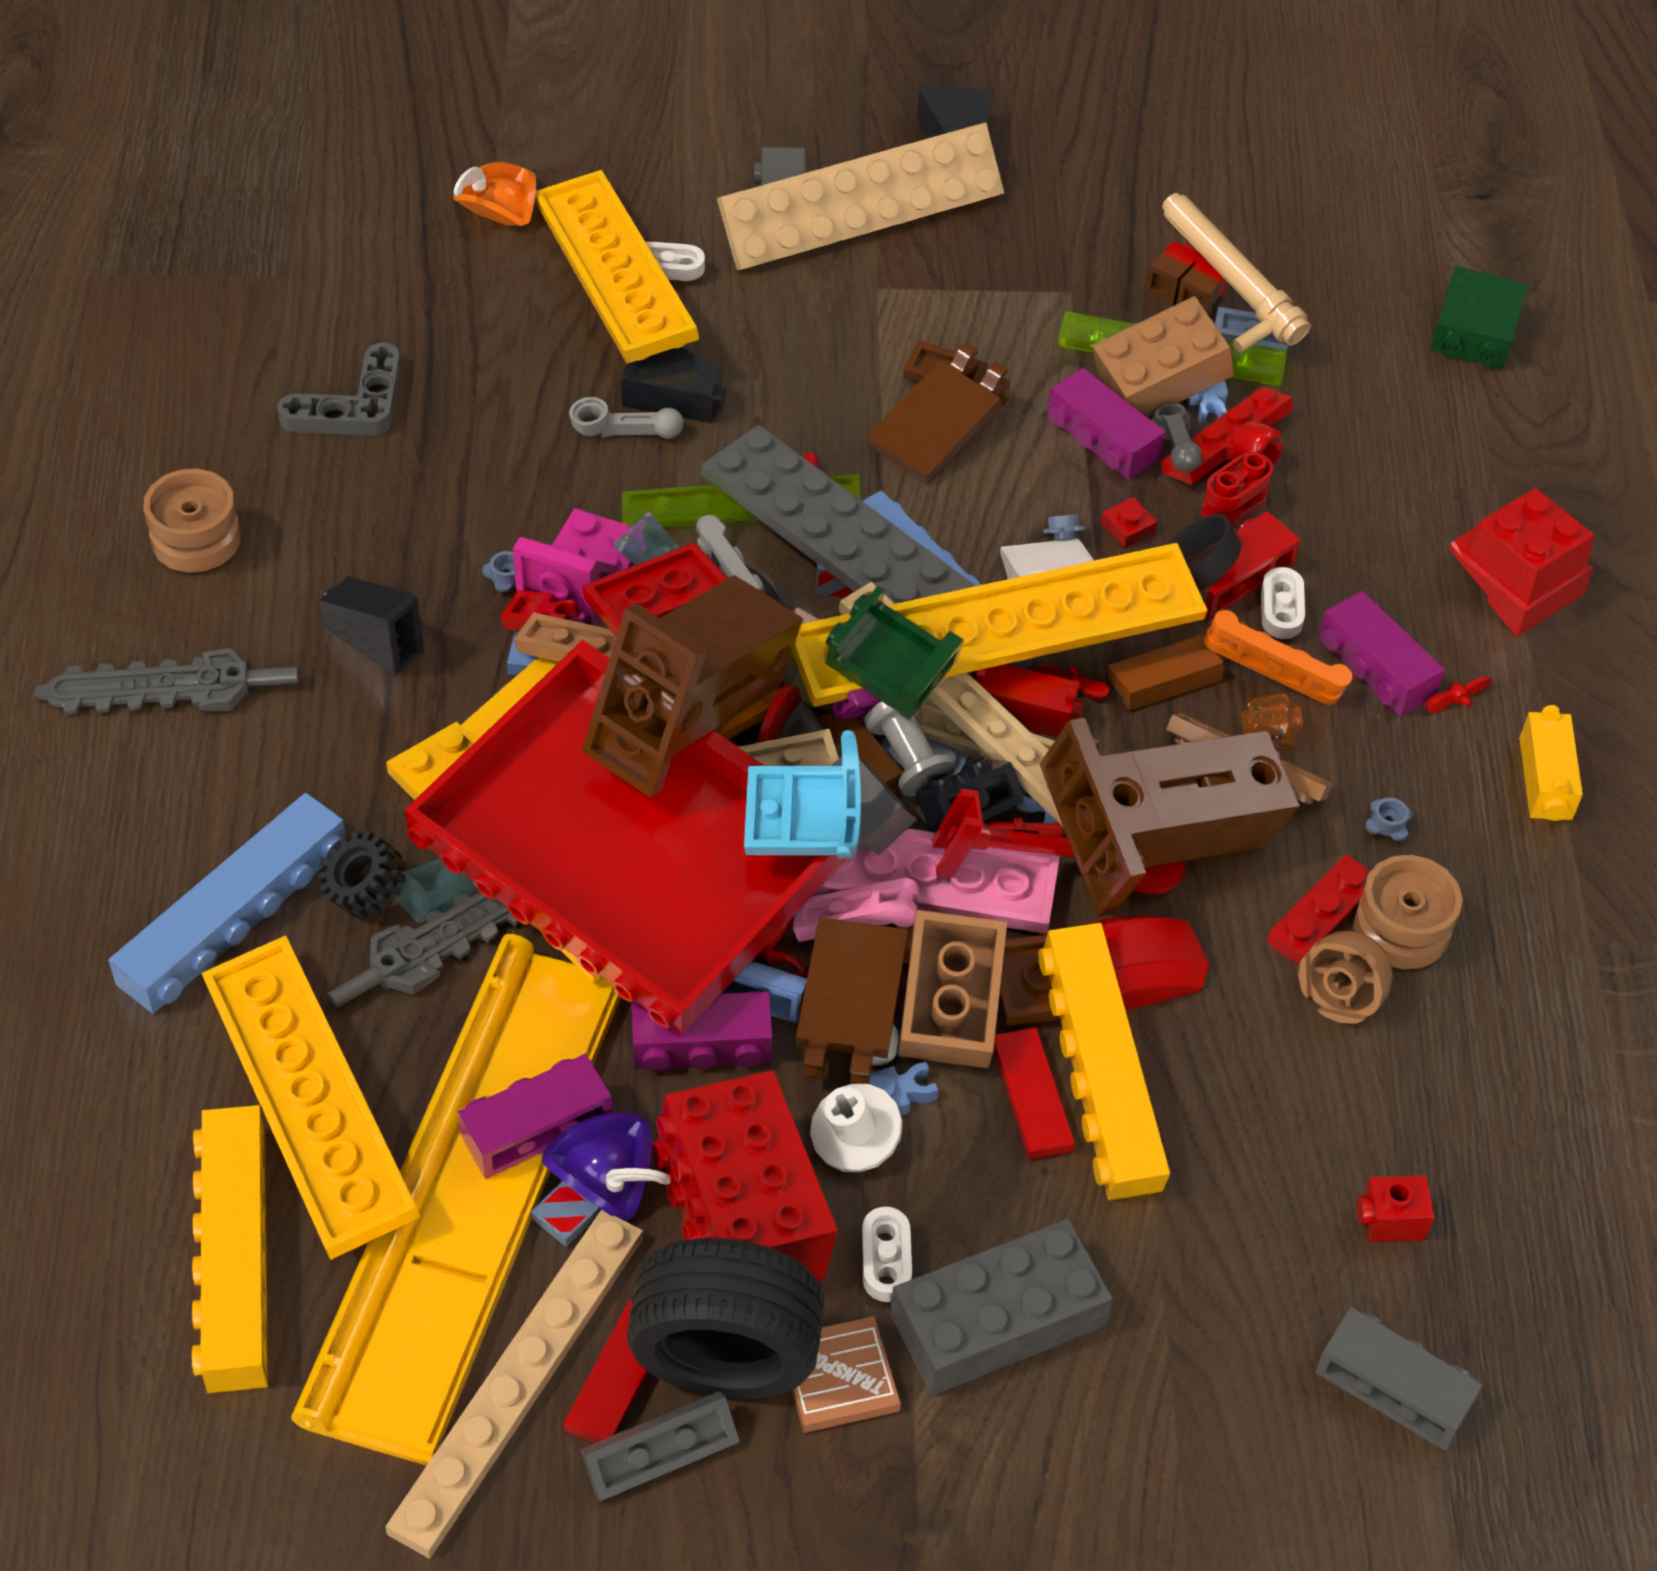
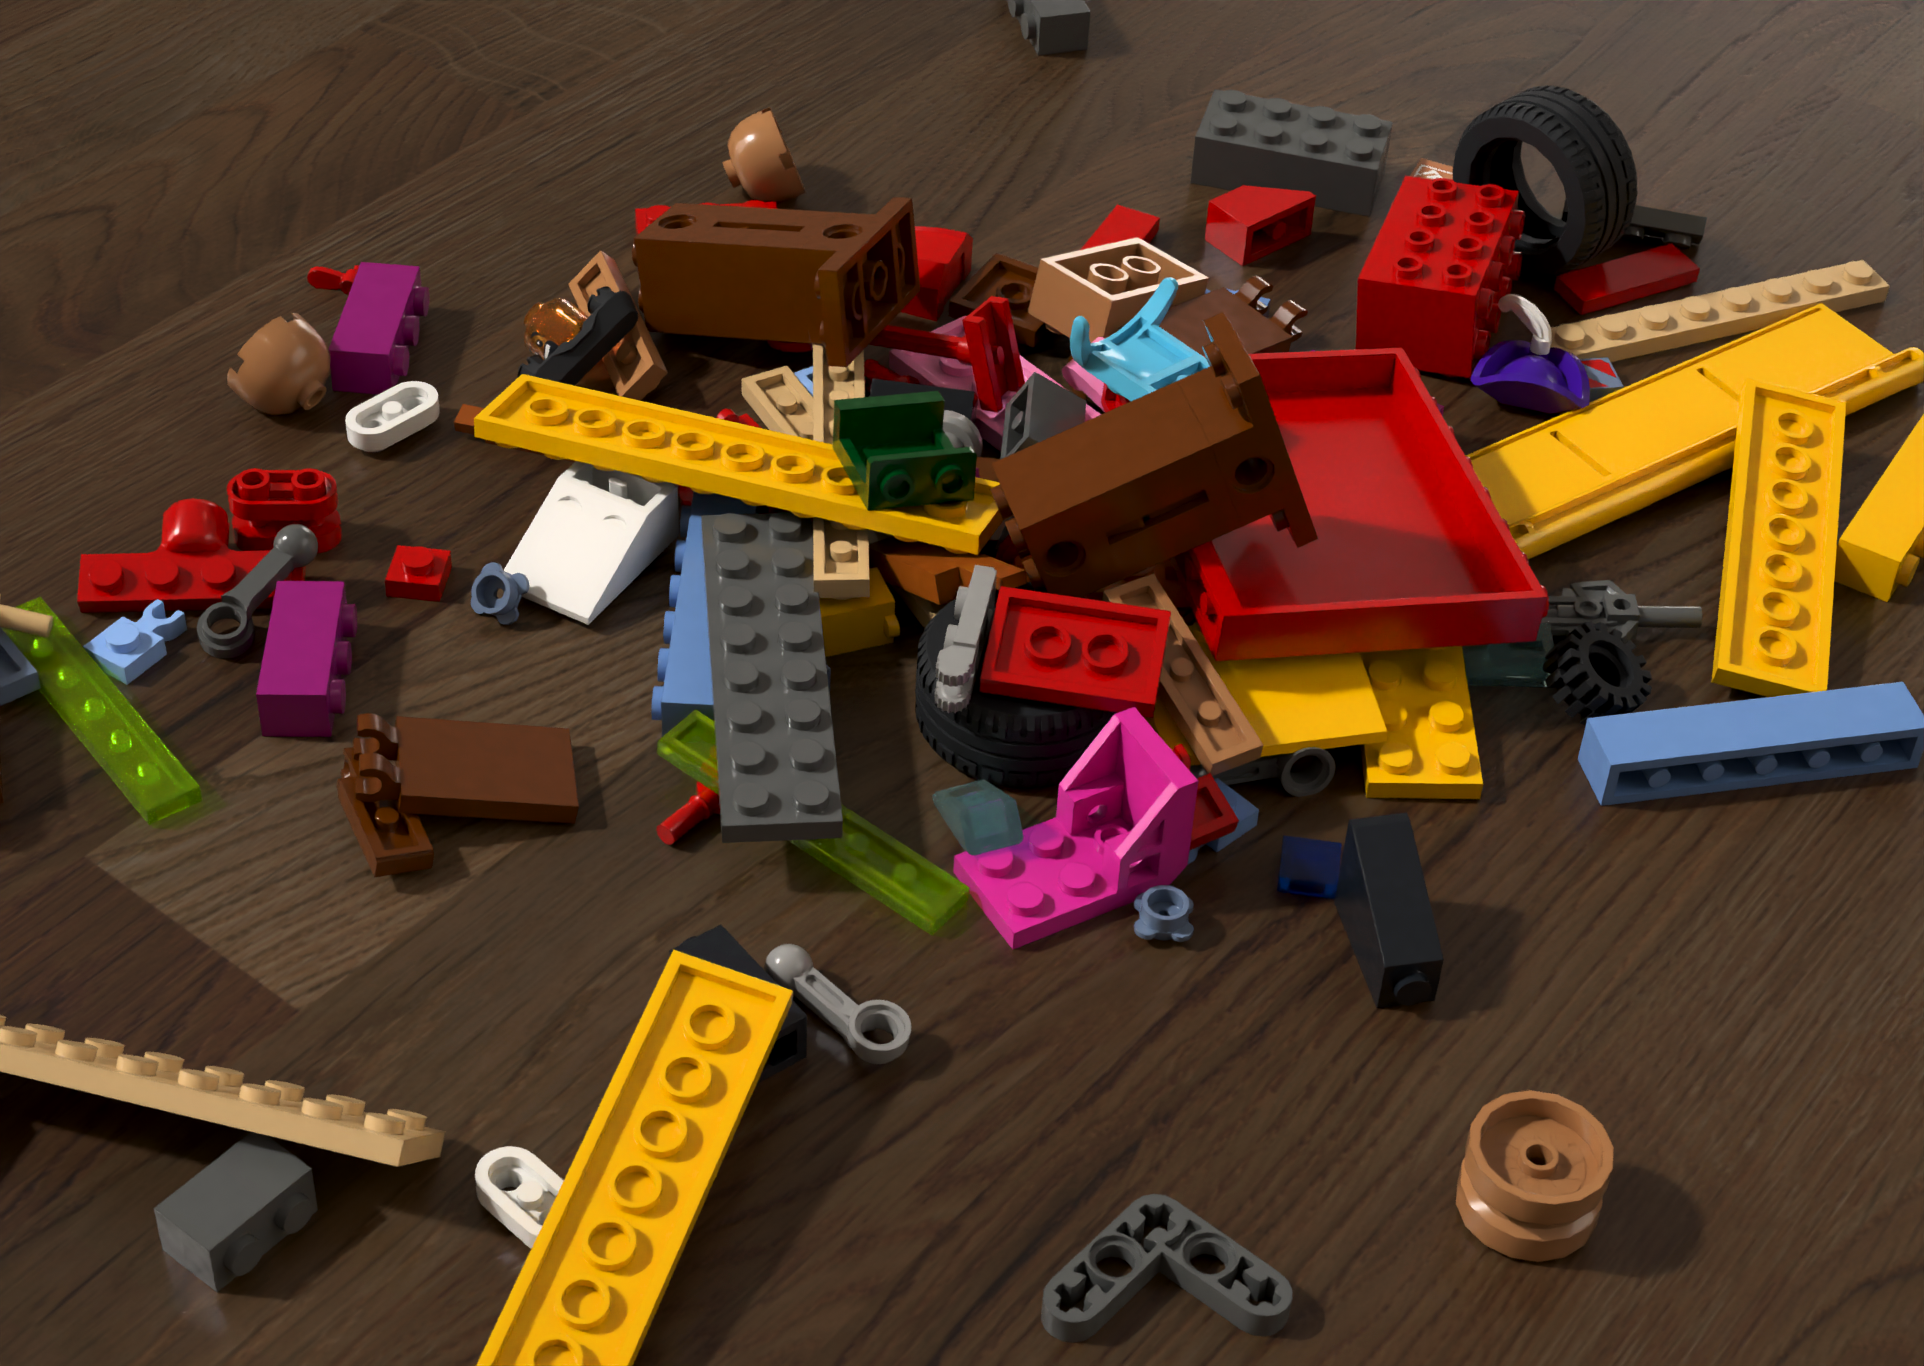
camera: 140 degrees left, 10 degrees down
(210, 682) = (1628, 993): dark grey bar -> none
(451, 653) = (1309, 867): none -> clear blue tile
(531, 1114) = (1577, 412): magenta brick -> none
(856, 1127) = (1298, 279): white piece -> none
(885, 1257) = (1344, 226): white plate -> none
(954, 1196) = (1258, 221): none -> red slope
(1104, 1062) = (1038, 210): yellow brick -> none
(1164, 357) = (159, 649): medium nougat brick -> none
(1200, 536) = (464, 425): black tyre -> none
(1231, 690) = (609, 322): none -> black piece
(1264, 547) = (385, 454): red slope -> none
(1276, 660) = (481, 347): orange plate -> none
(1372, 569) = (282, 367): none -> medium nougat cylinder
(1392, 810) = (561, 239): sand blue plate -> none
(1396, 1208) = (922, 57): red brick -> none
(1409, 910) = (660, 158): medium nougat wheel -> none
(1527, 559) = (140, 280): red piece -> none
(1550, 765) = (376, 188): yellow brick -> none

